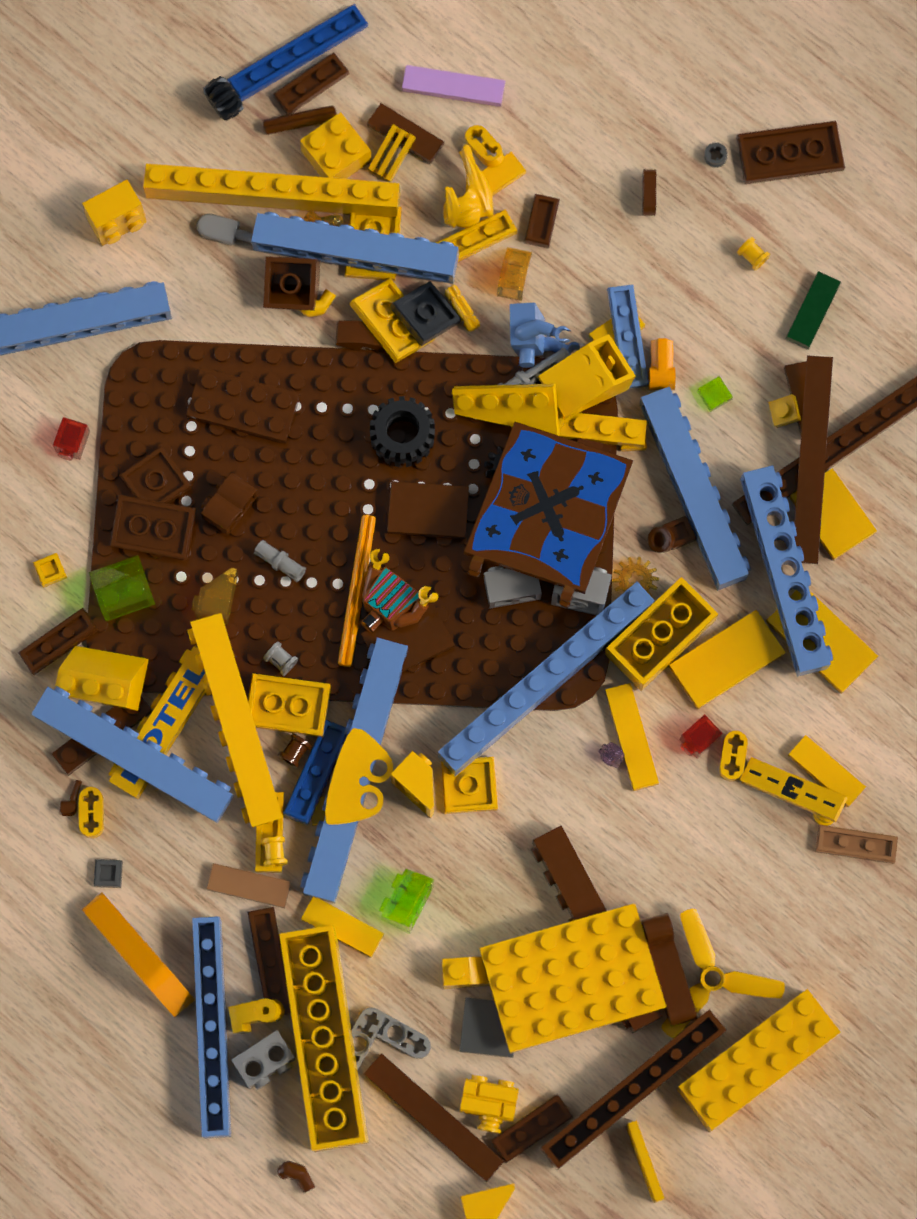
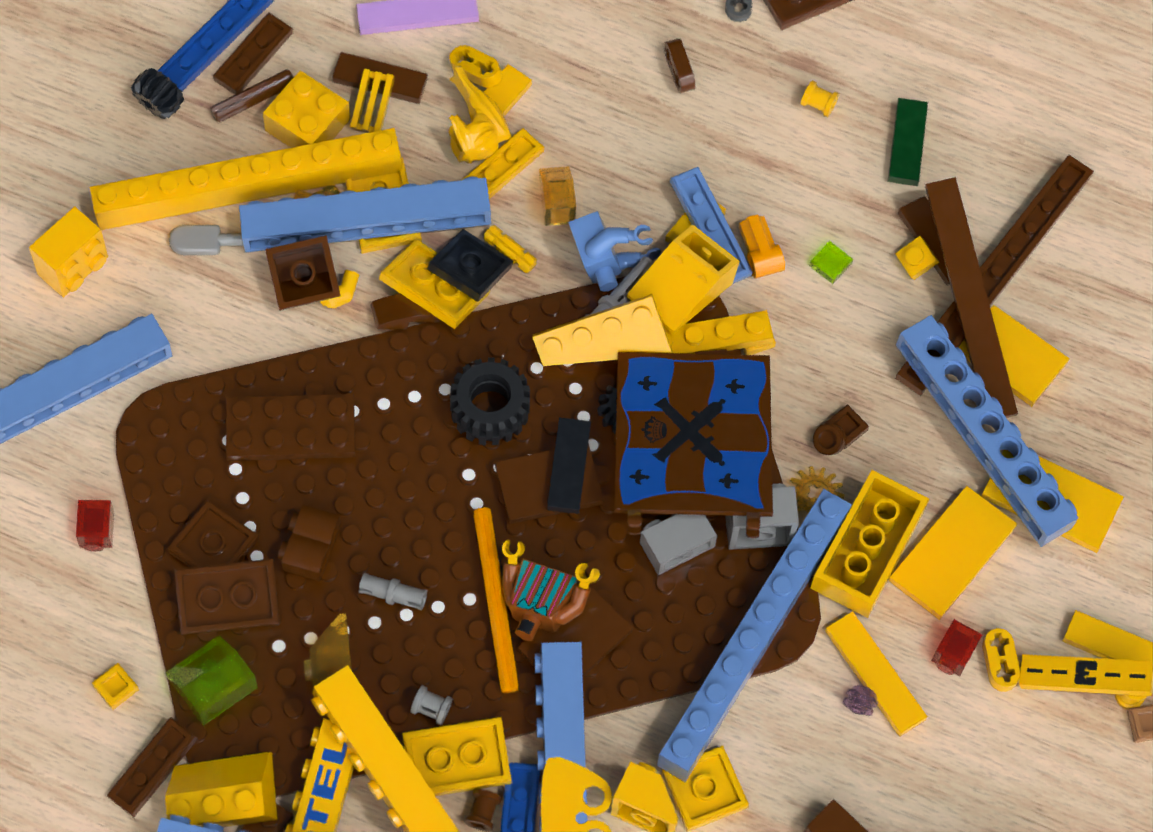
camera: 20 degrees left, 10 degrees down
(447, 501) = (569, 465): none -> black tile
(542, 221) = (568, 130): reddish brown tile -> none
(694, 488) = (847, 371): medium blue brick -> none

